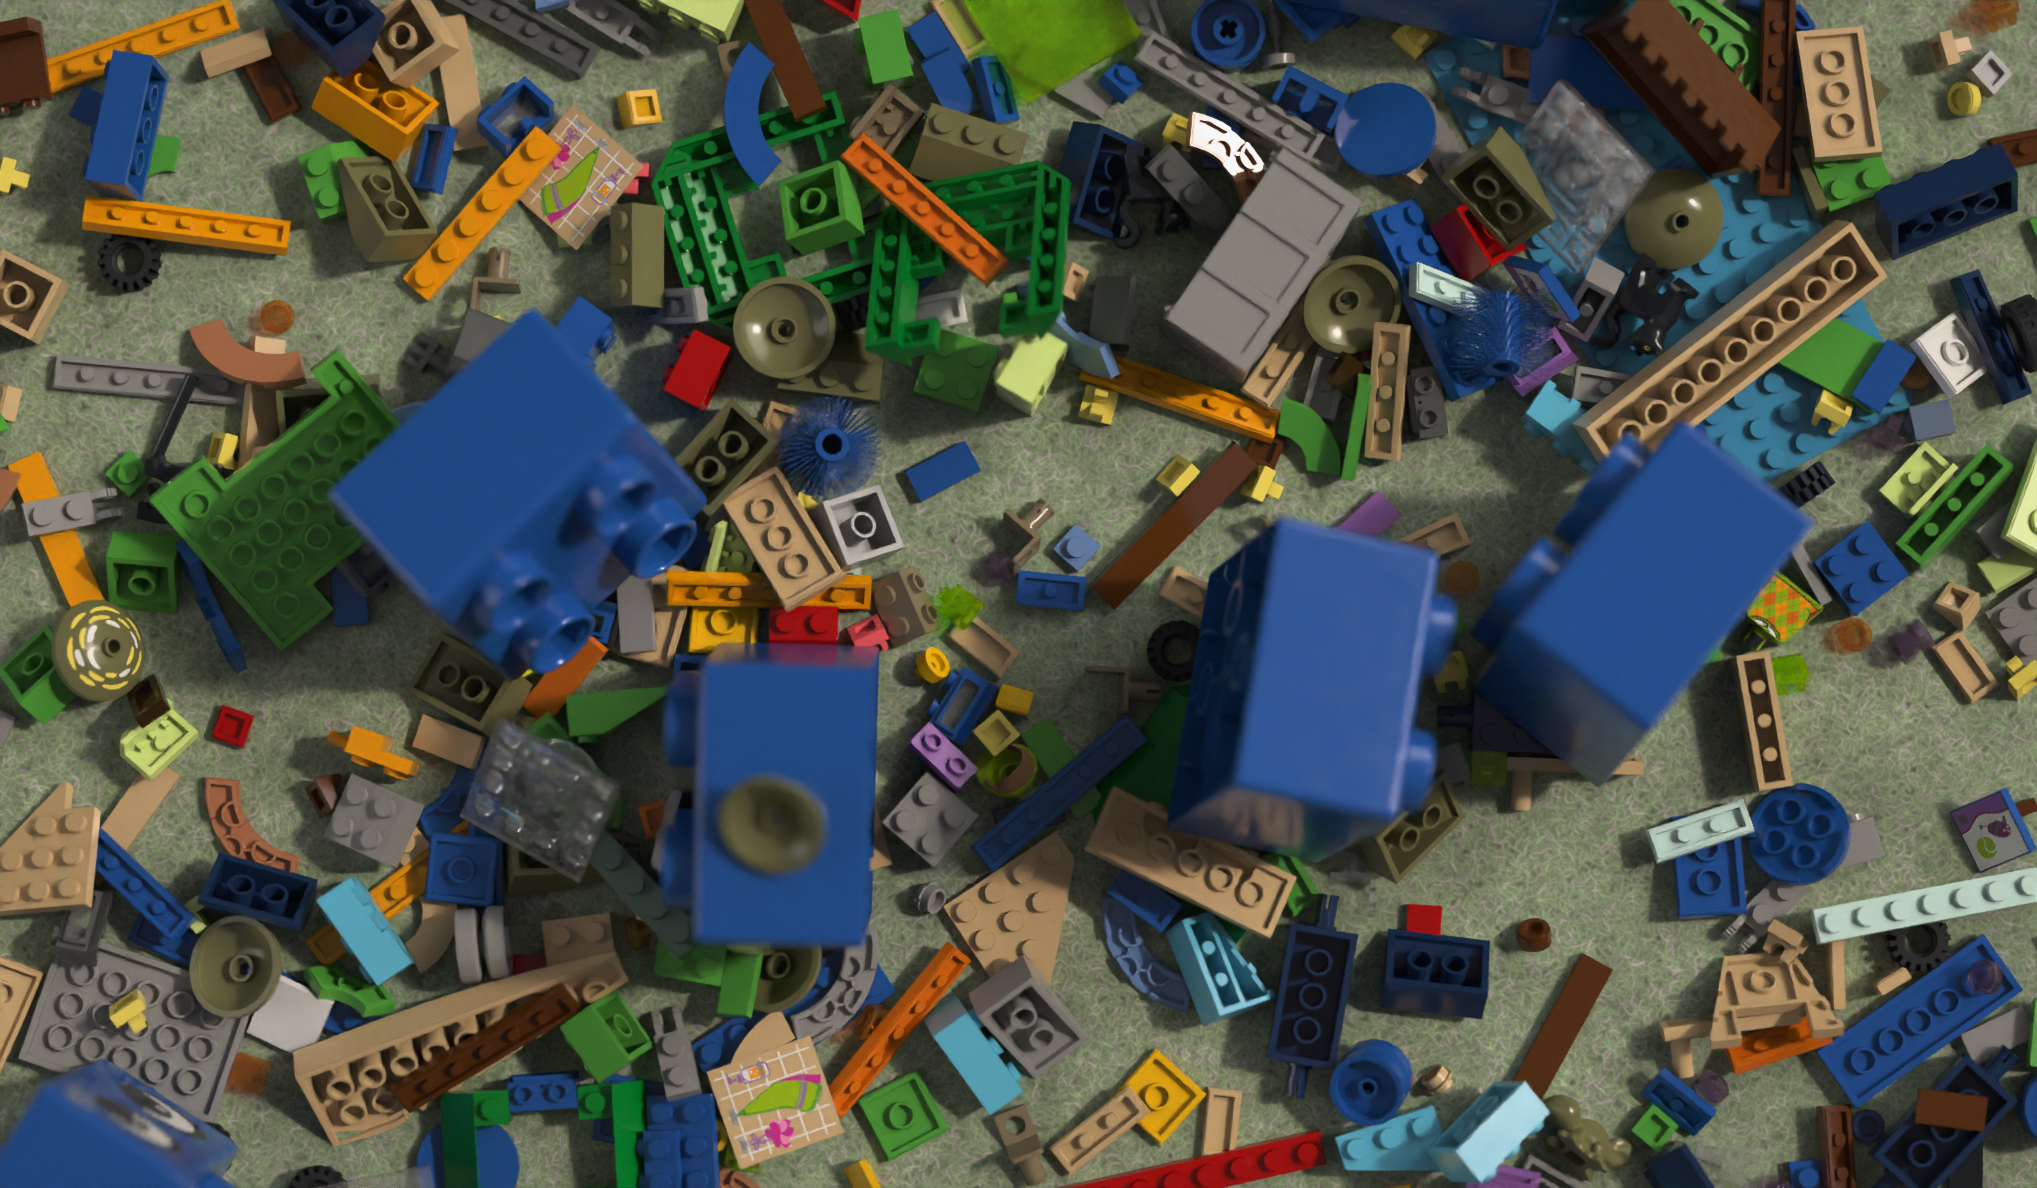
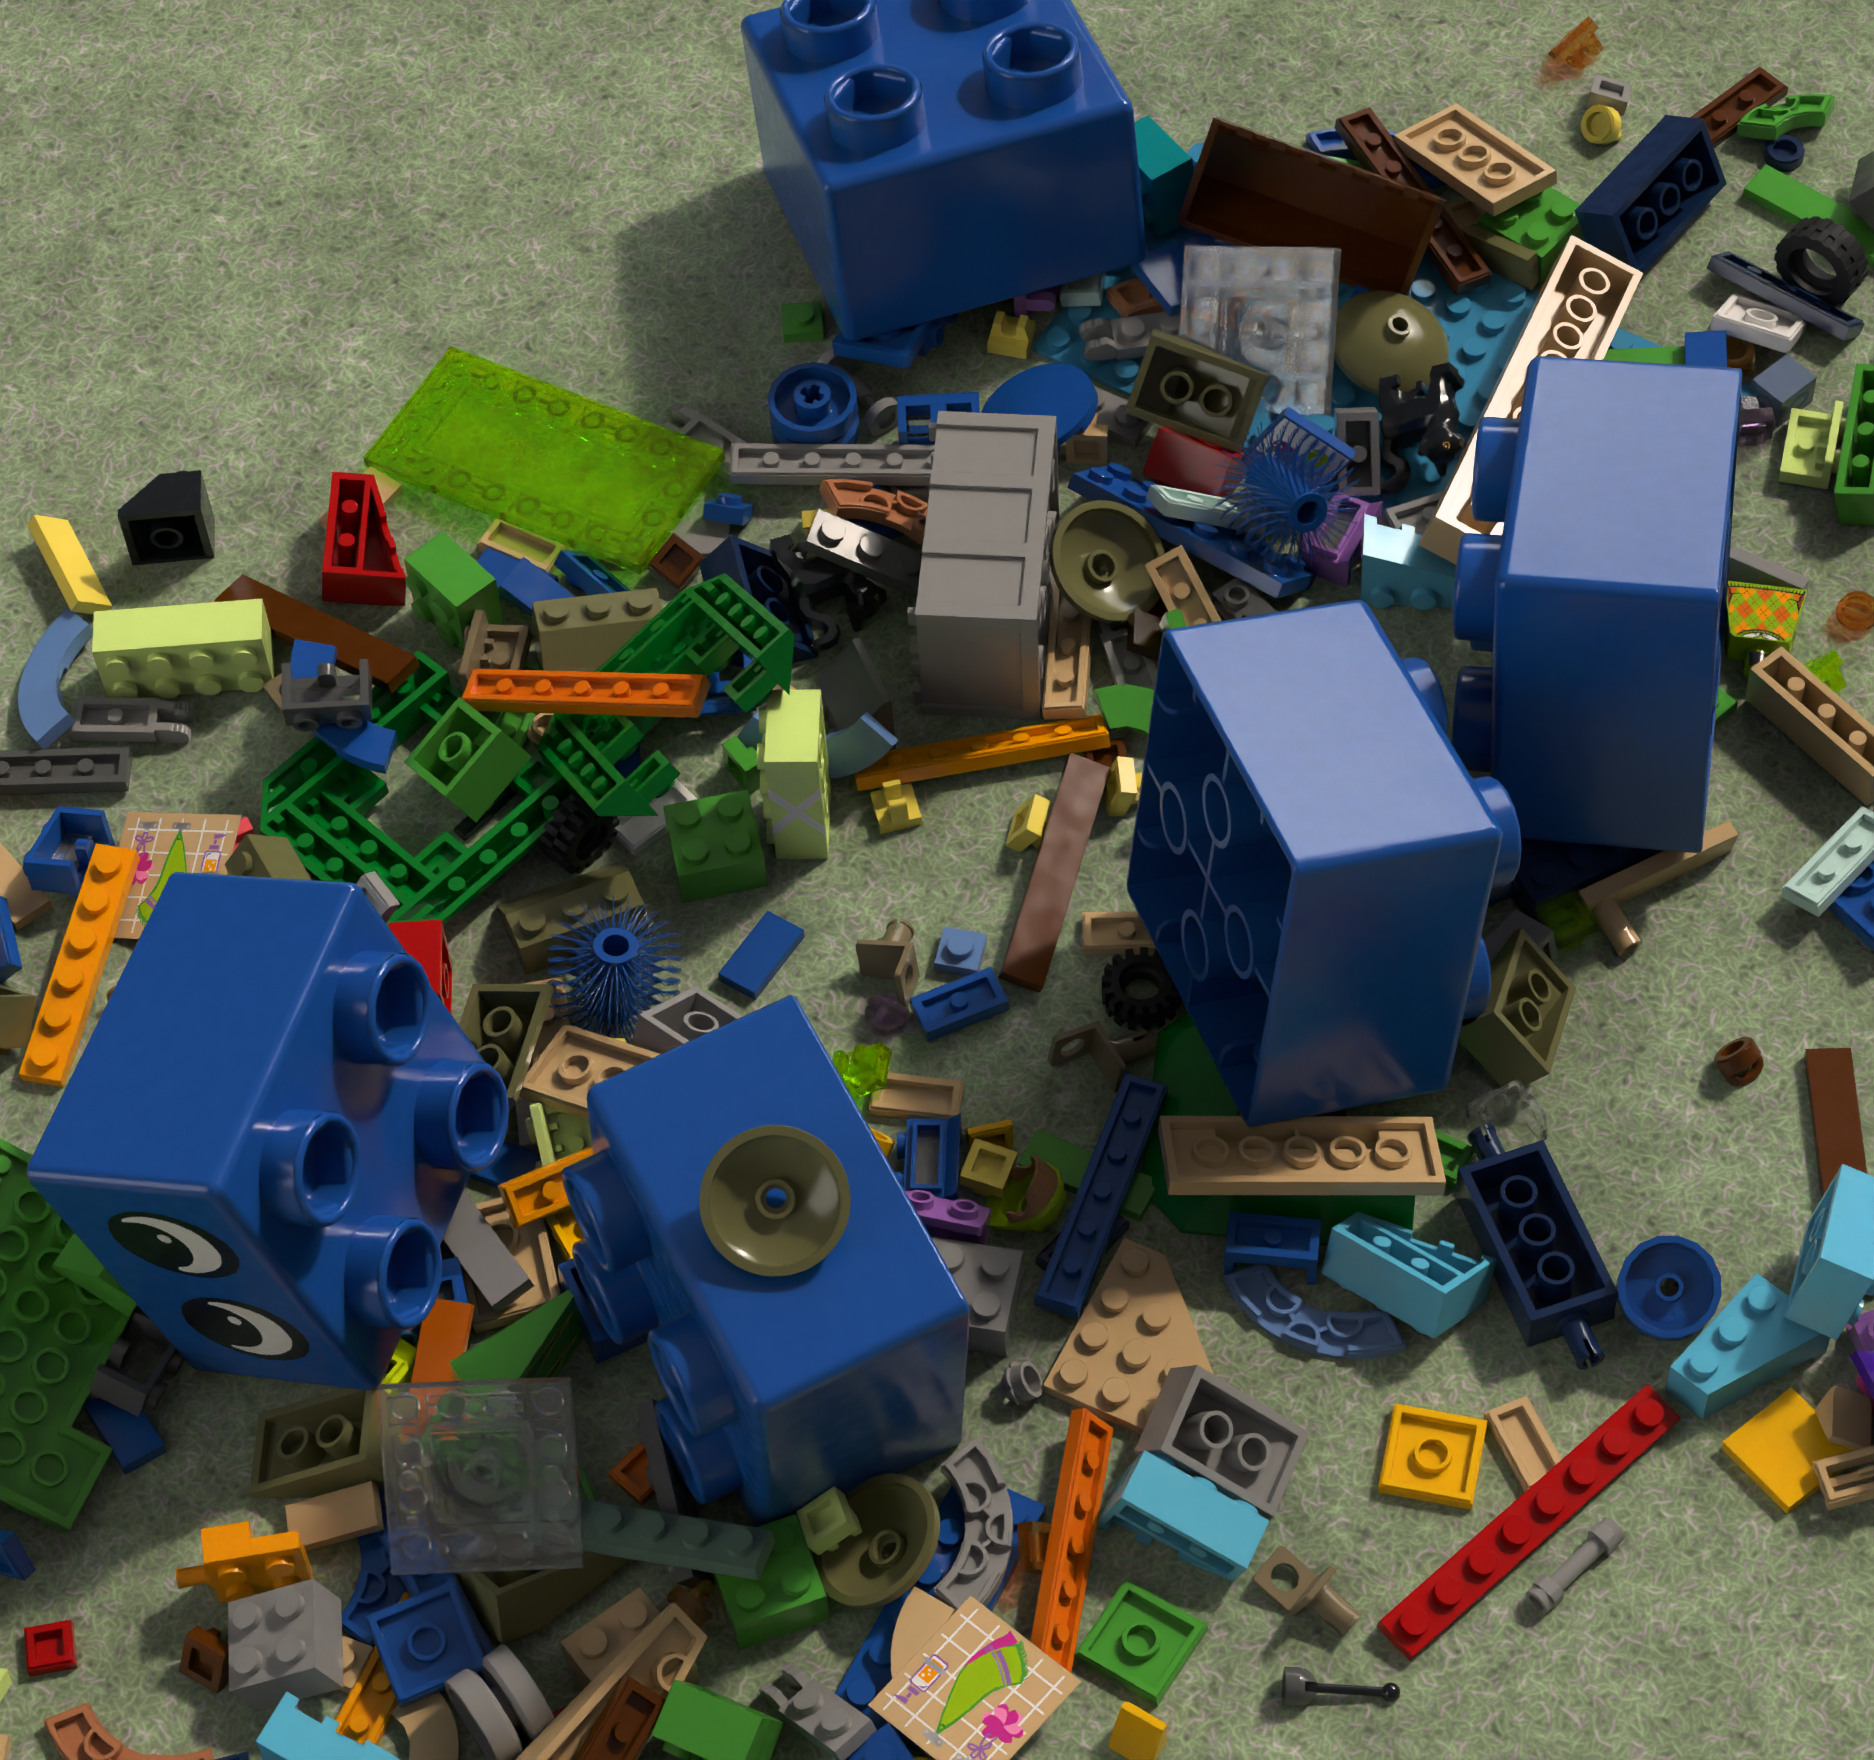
camera: 25 degrees left, 30 degrees down
(639, 108) = (206, 788): yellow slope -> none
(739, 985) = (849, 1584): bright green tile -> none
(744, 113) = (327, 698): none -> dark grey window
(777, 304) = (489, 858): olive dish -> none
(1061, 106) = (676, 562): none -> reddish brown tile
(1099, 1129) = (1388, 1525): tan tile -> none
(1424, 918) = (1606, 1114): red tile -> none
(1435, 974) = (1660, 1154): dark blue slope -> none
(1437, 1080) = (1741, 1261): tan plate -> none
(1859, 569) = (1818, 542): blue brick -> none
(1946, 50) = (1552, 95): tan tile -> none

